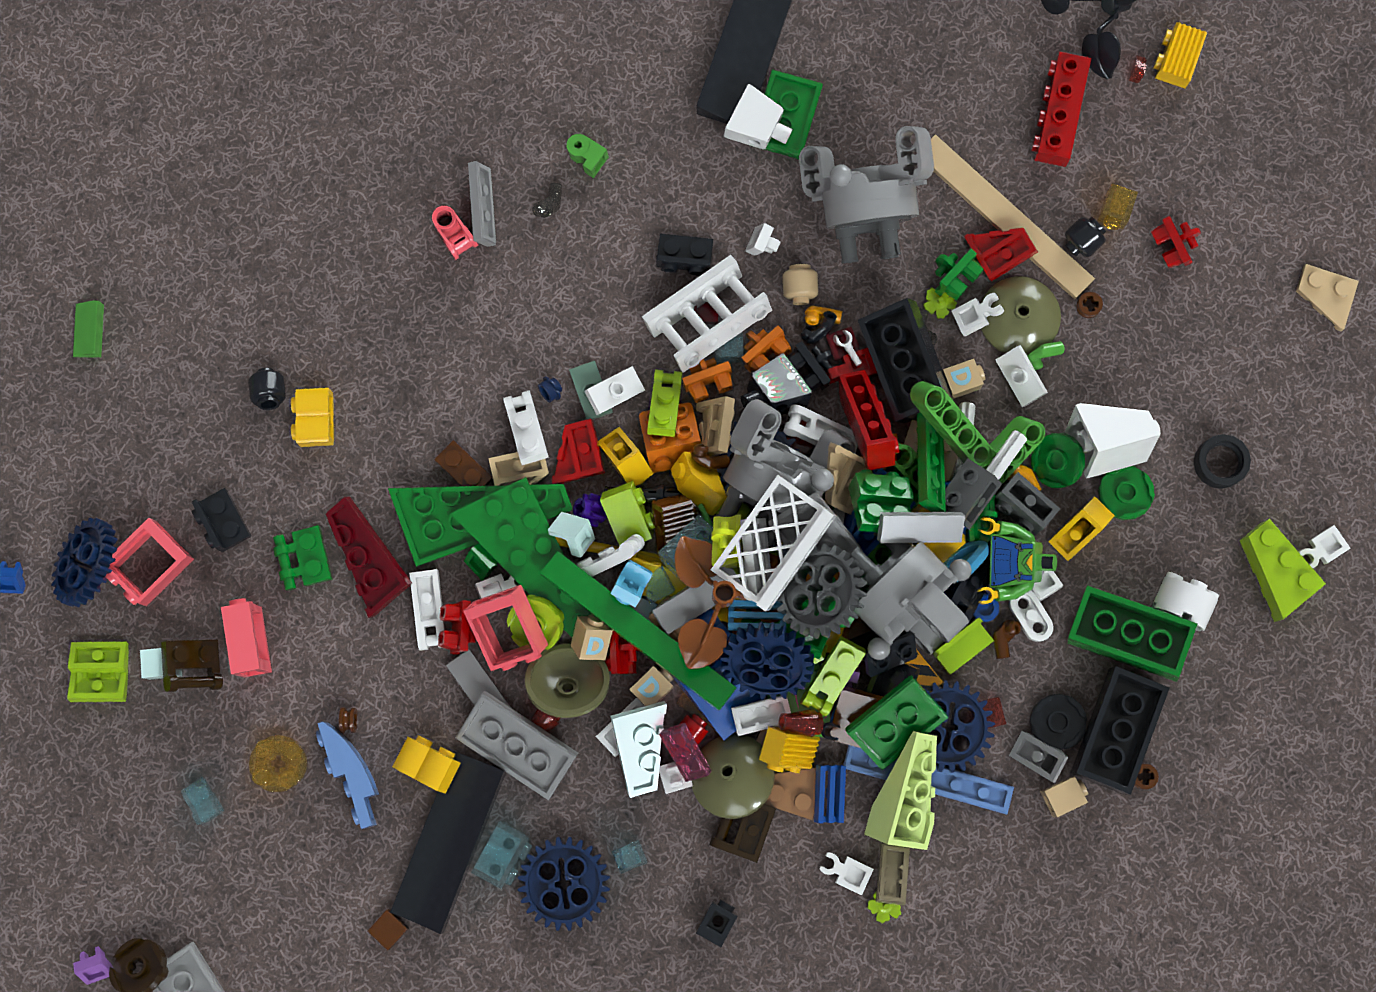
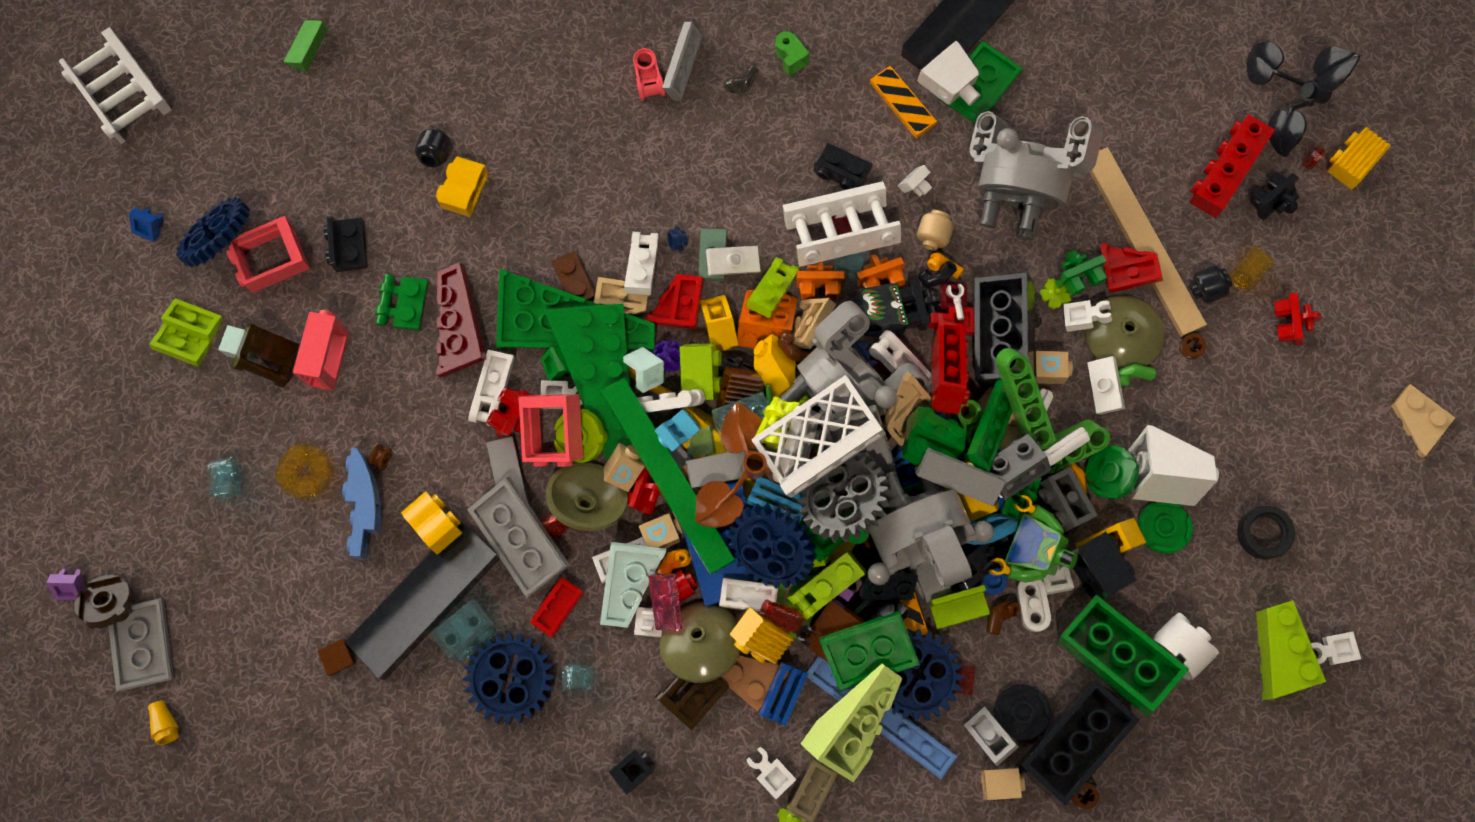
camera: 20 degrees right, 5 degrees down
(581, 797) = (557, 607): none -> red plate
(676, 707) = (674, 560): none -> light orange arm
(717, 162) = (903, 102): none -> light orange tile
(1083, 556) = (1102, 567): none -> black slope
(1120, 126) = (1280, 199): none -> black hips

